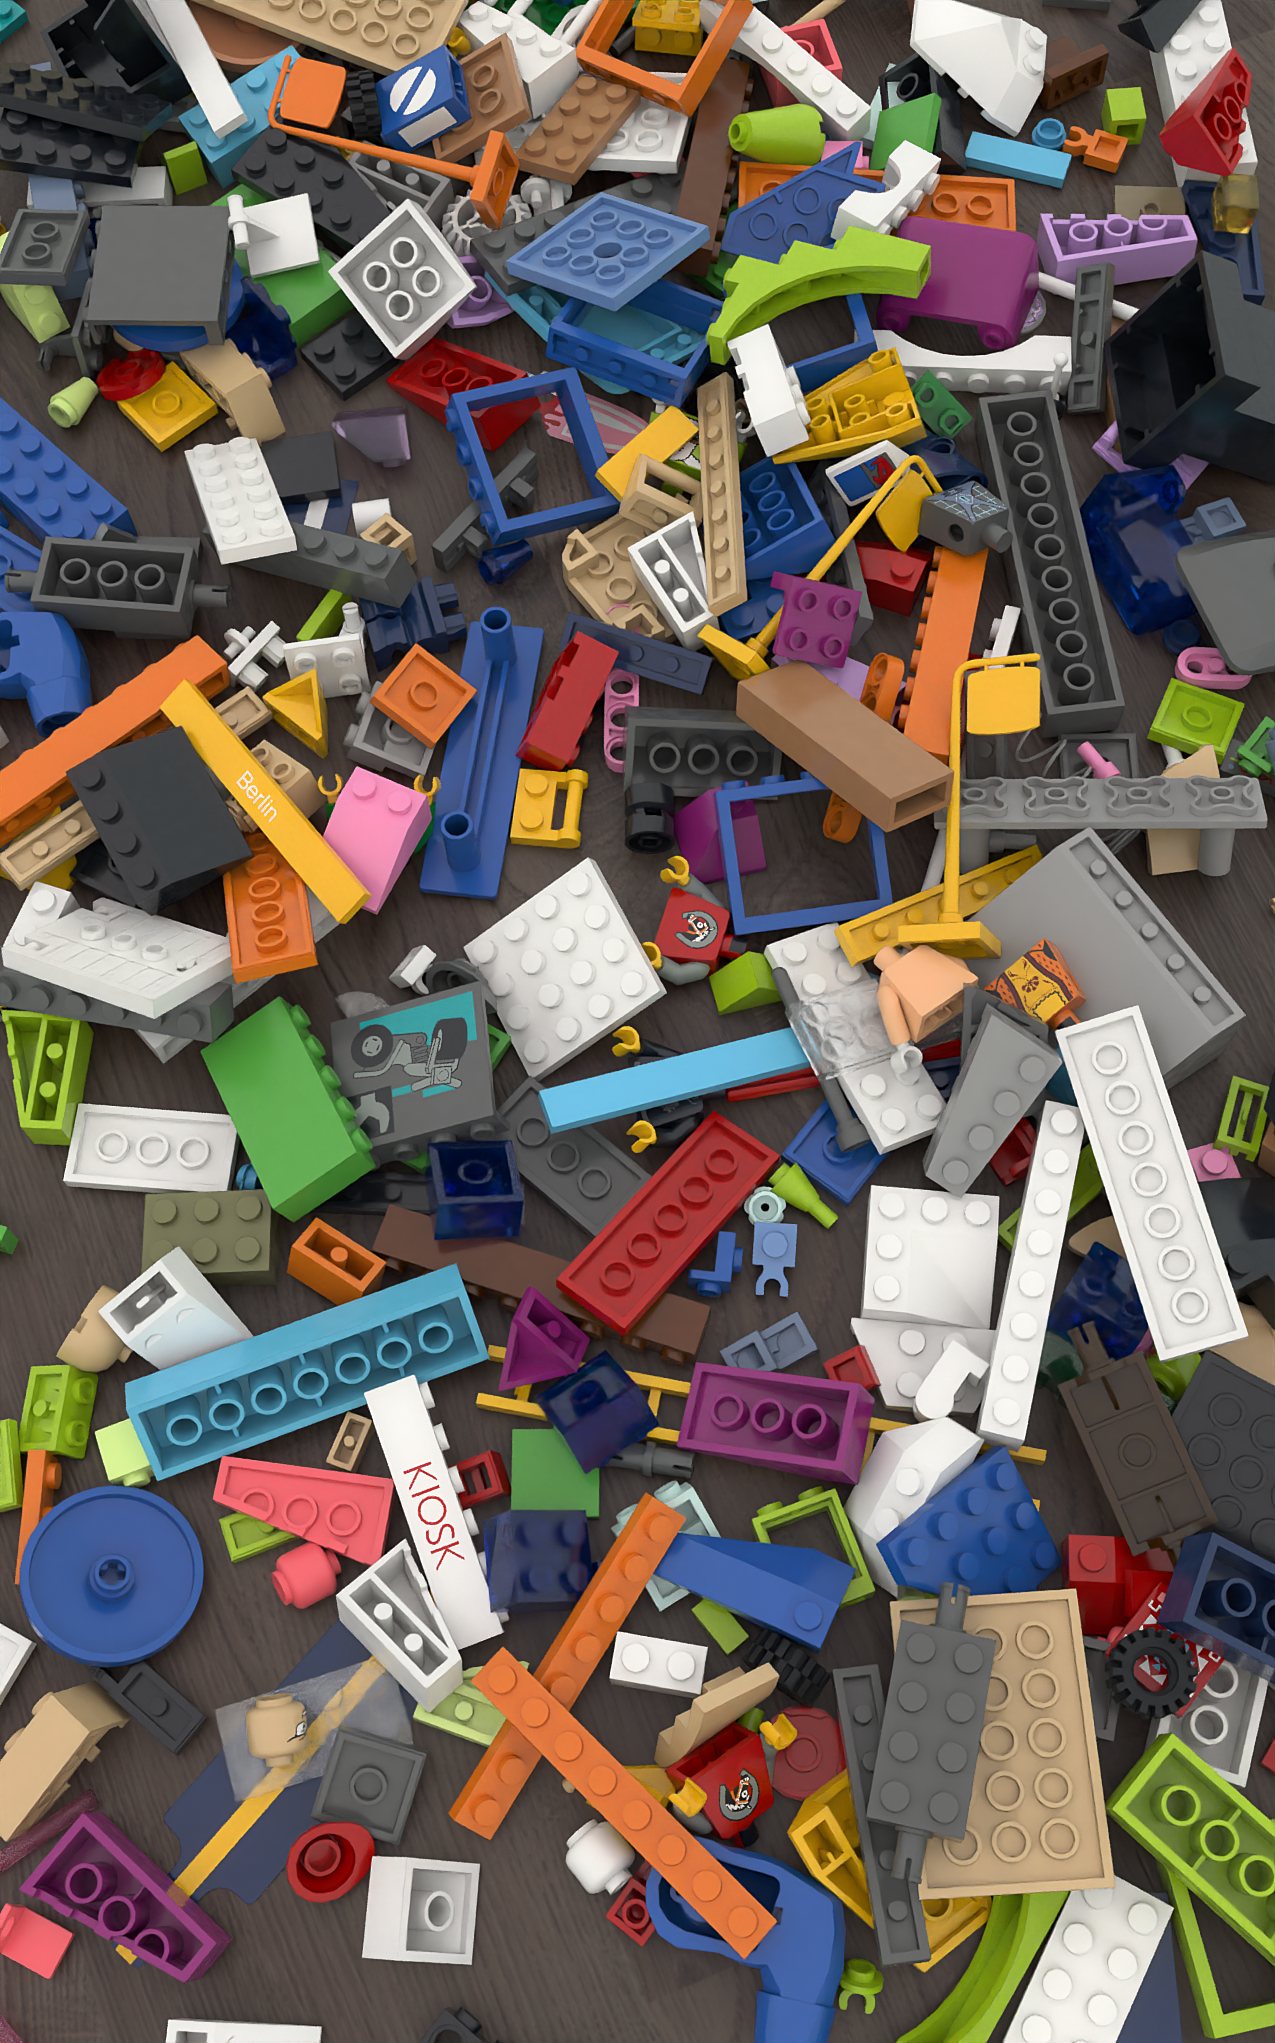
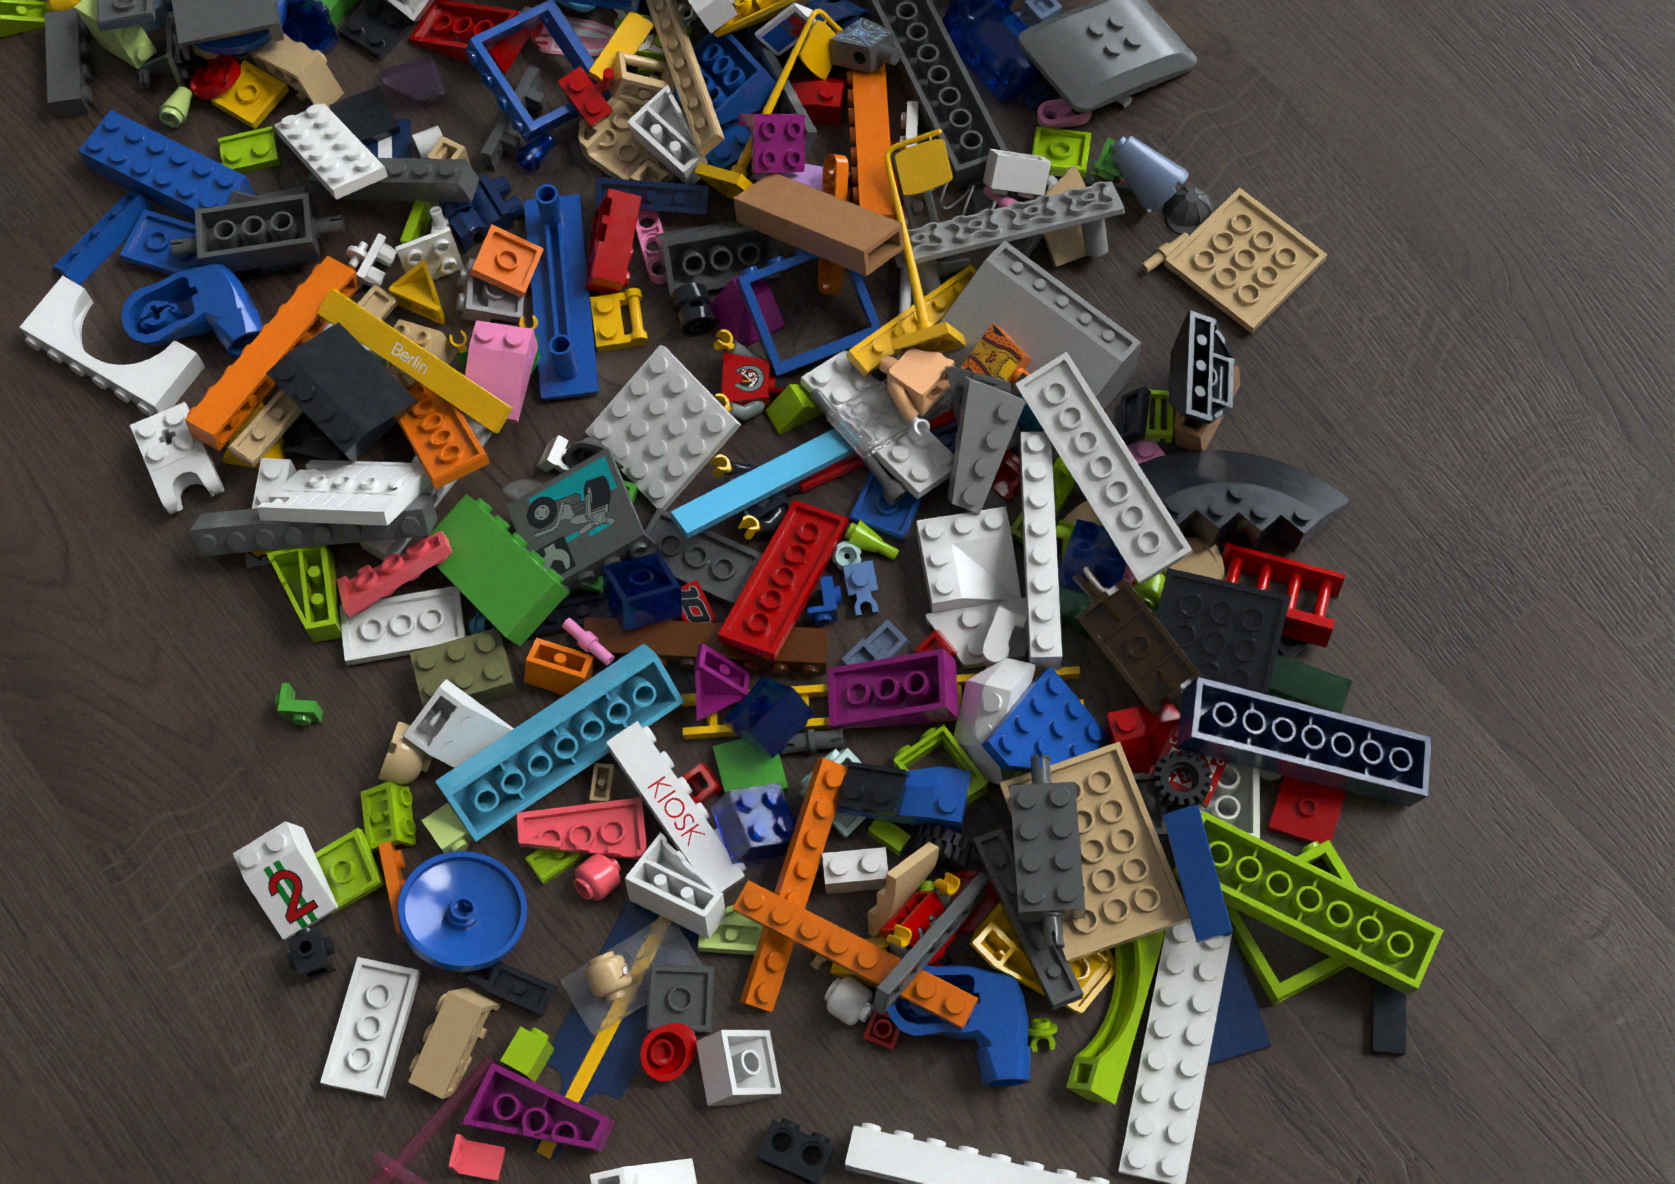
camera: 15 degrees left, 0 degrees up
(141, 1084) = (382, 581): none -> coral wing
(141, 1805) = (528, 1053): none -> lime brick
(147, 478) = (250, 150): none -> lime plate
(382, 1241) = (588, 641): none -> bright pink bar
(541, 1223) = (695, 605): none -> sticker
(586, 504) = (586, 96): none -> red plate
(711, 1561) = (873, 789): none -> black plate
(728, 1821) = (930, 943): none -> dark grey tile
(1072, 1252) = (1064, 531): none -> lime hand
(1129, 735) = (1016, 173): none -> white brick
(1142, 1832) = (1197, 874): none -> blue slope
(1209, 1111) = (1134, 415): none -> black tile

